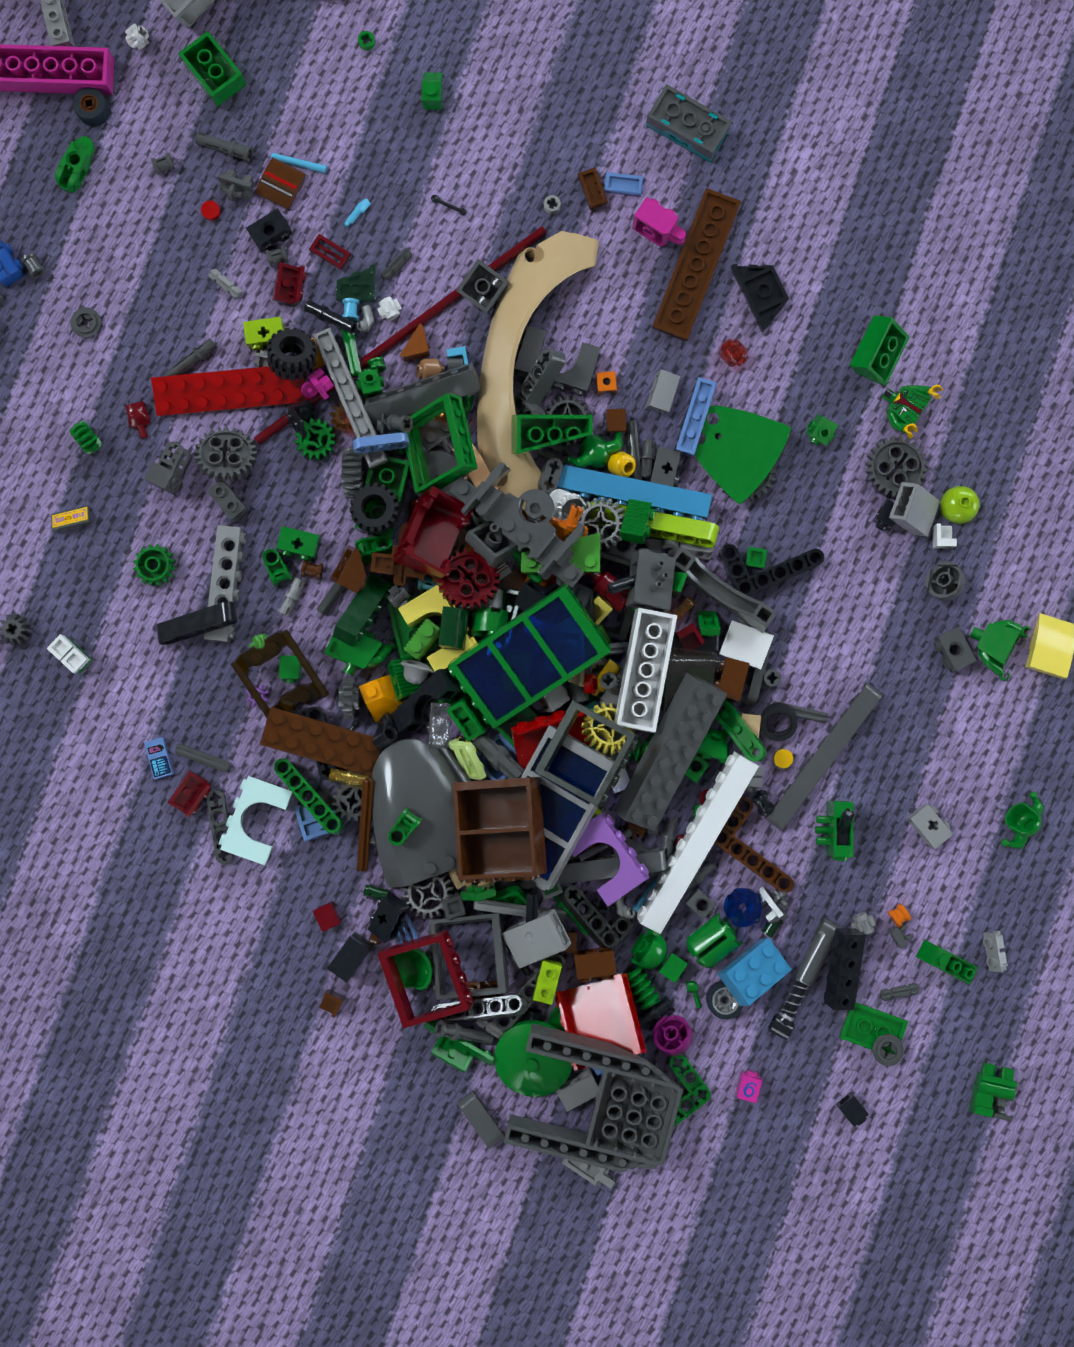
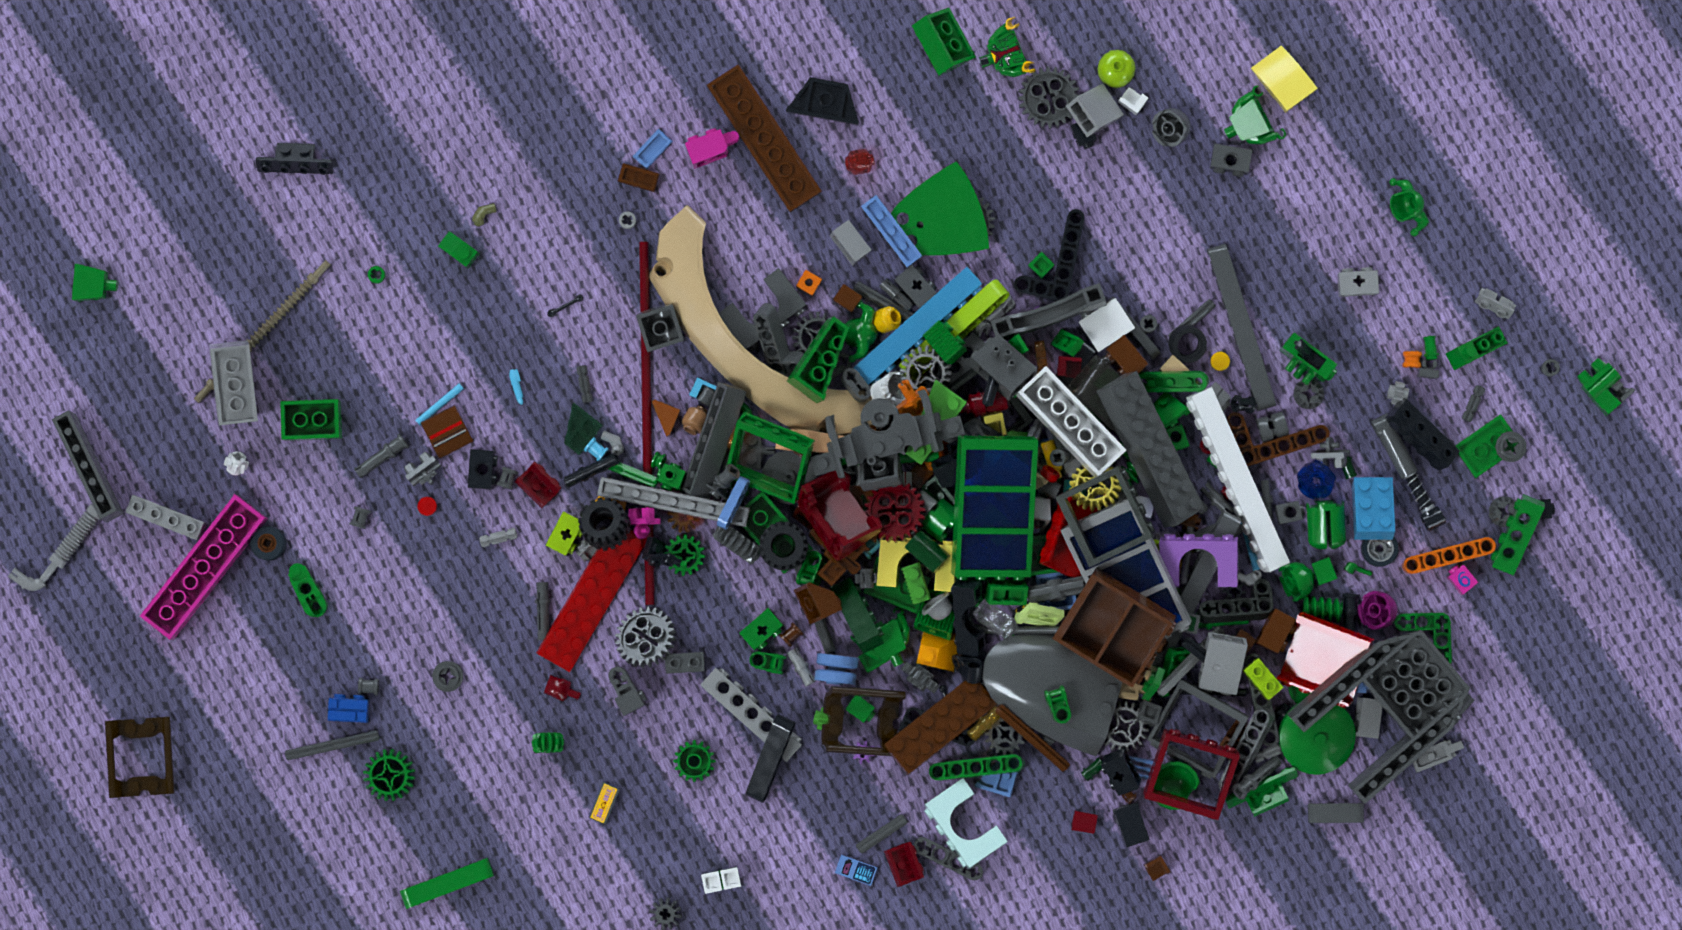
camera: 50 degrees left, 0 degrees up
(305, 626) = (836, 669): none -> medium blue wheel
(316, 244) = (519, 438): dark red tile -> none
(389, 308) = (619, 417): white gear -> none
(476, 87) = (481, 212): none -> olive arm
(688, 123) = (642, 61): dark grey piece -> none
(765, 1069) = (1457, 551): none -> orange beam
(767, 842) = (1278, 424): none -> dark grey wheel
(792, 1118) = (1509, 562): none -> green brick
(800, 848) = (1302, 400): none -> dark grey gear
(821, 430) = (975, 137): green brick -> none
(822, 1075) = (1495, 514): none -> dark grey gear
(919, 924) = (1430, 348): none -> green pin
(980, 1039) = (1545, 369): none -> dark grey bush

